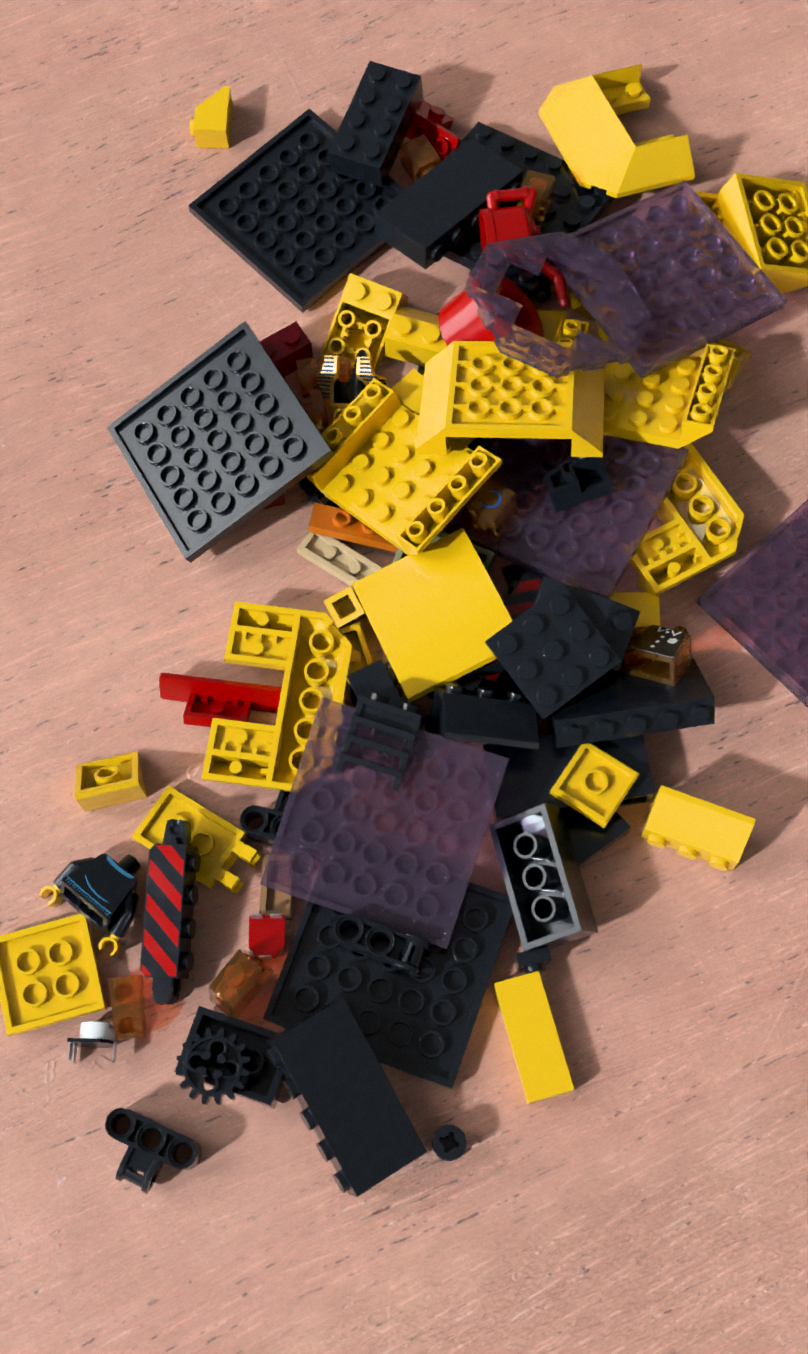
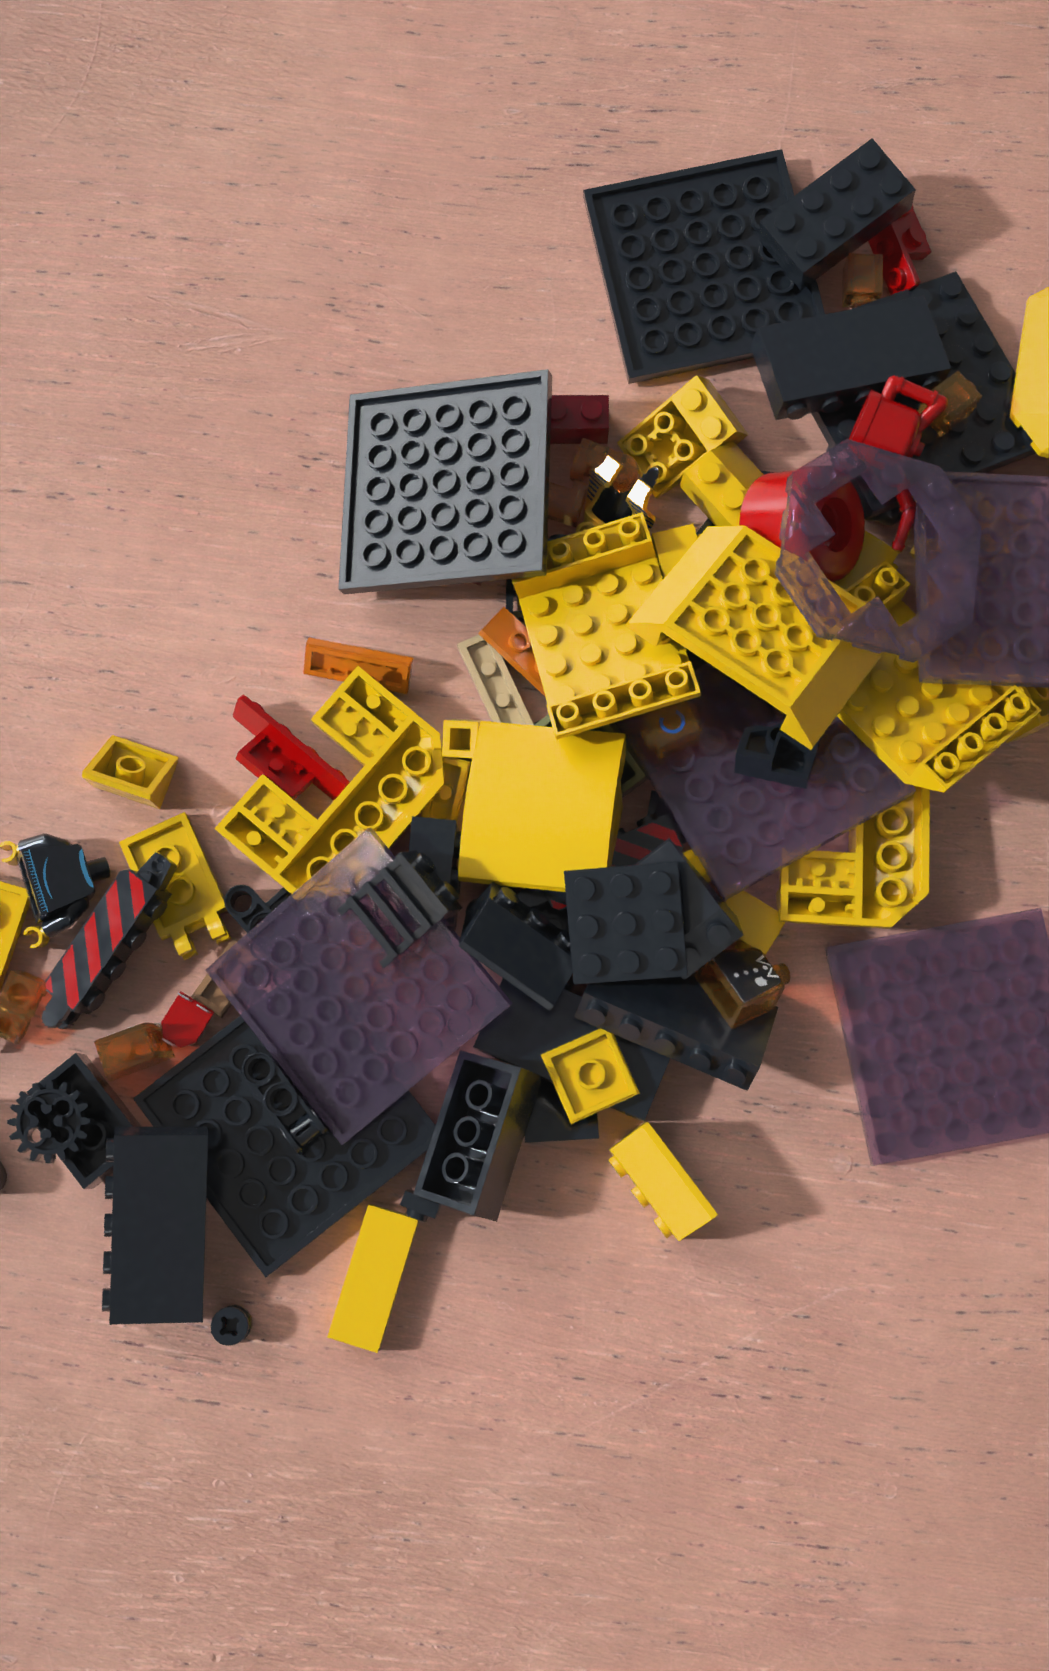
camera: 30 degrees right, 10 degrees up
(213, 120) = (672, 103): yellow slope -> none
(217, 610) = (339, 660): none -> orange plate

